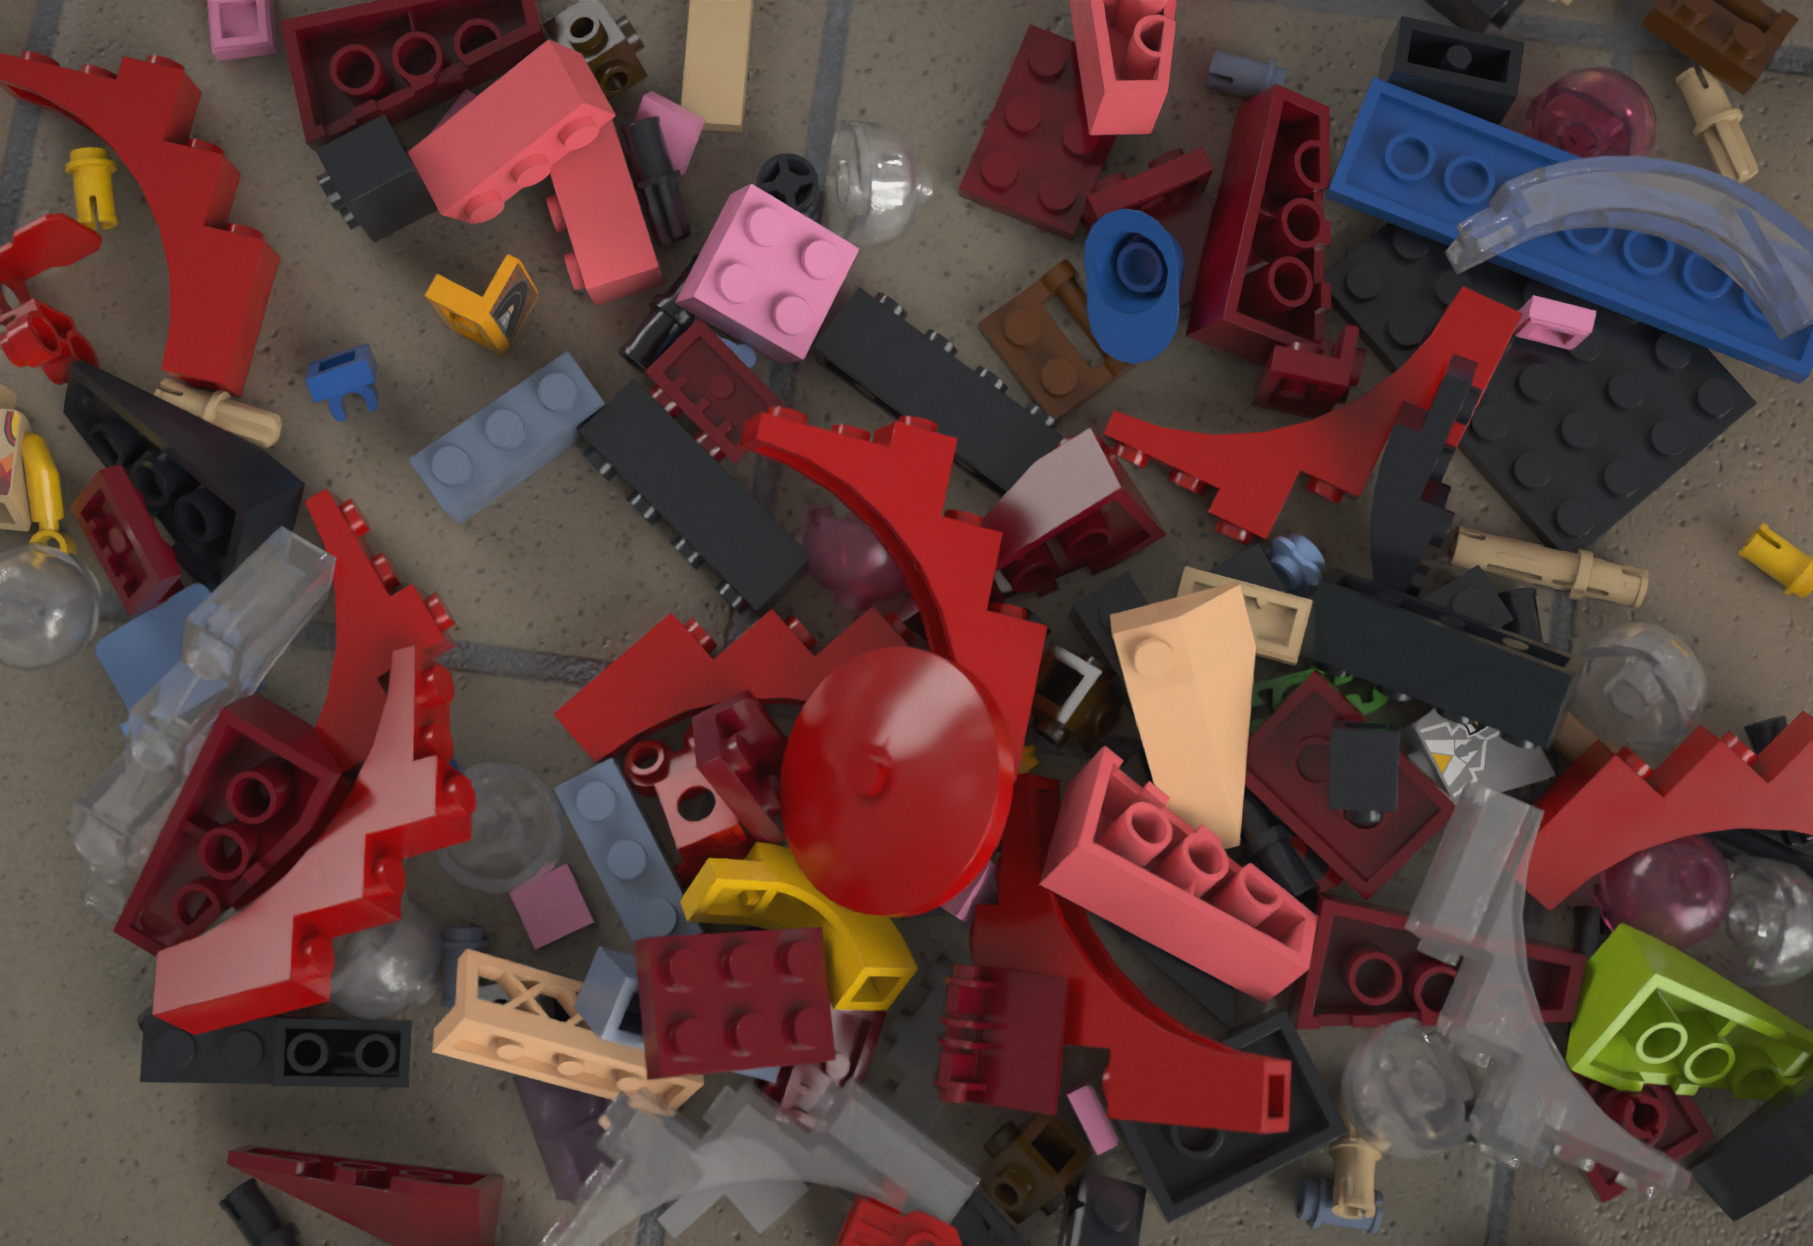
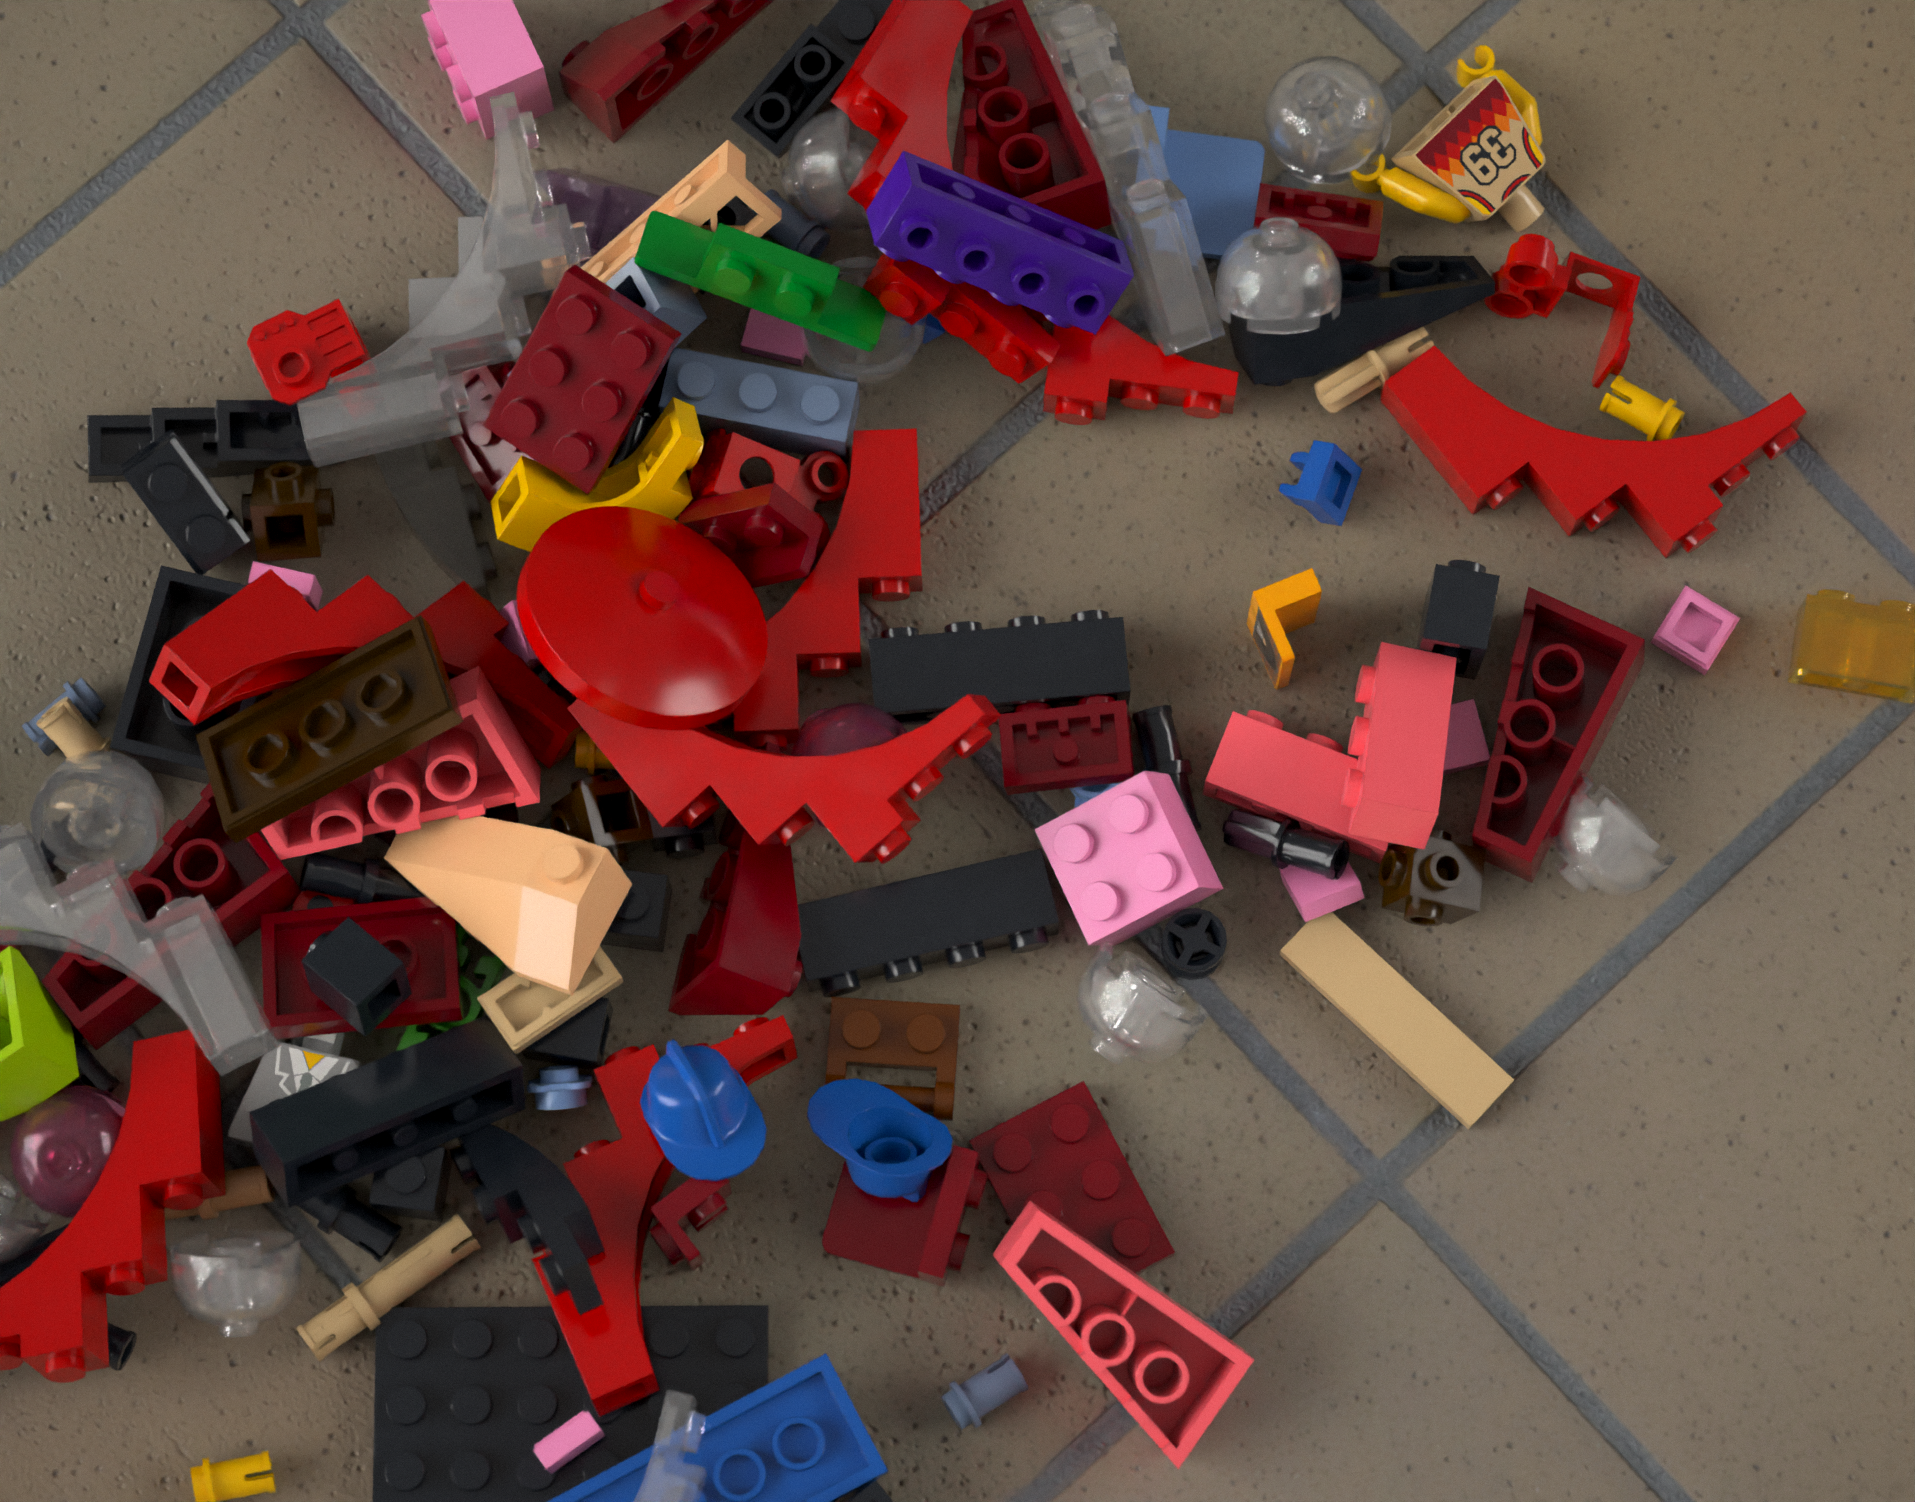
camera: 130 degrees right, 5 degrees down
(201, 512) = (1279, 278): none -> clear cylinder
(347, 746) = (998, 243): none -> dark purple brick
(509, 439) = (1164, 569): sand blue brick -> none
(534, 924) = (762, 278): none -> green bracket
(1003, 1038) = (394, 549): dark red hinge -> none
(1197, 950) = (328, 728): none -> dark brown piece
(1240, 411) = (702, 1113): none -> blue piece
(1268, 232) = (830, 1279): dark red wedge -> none

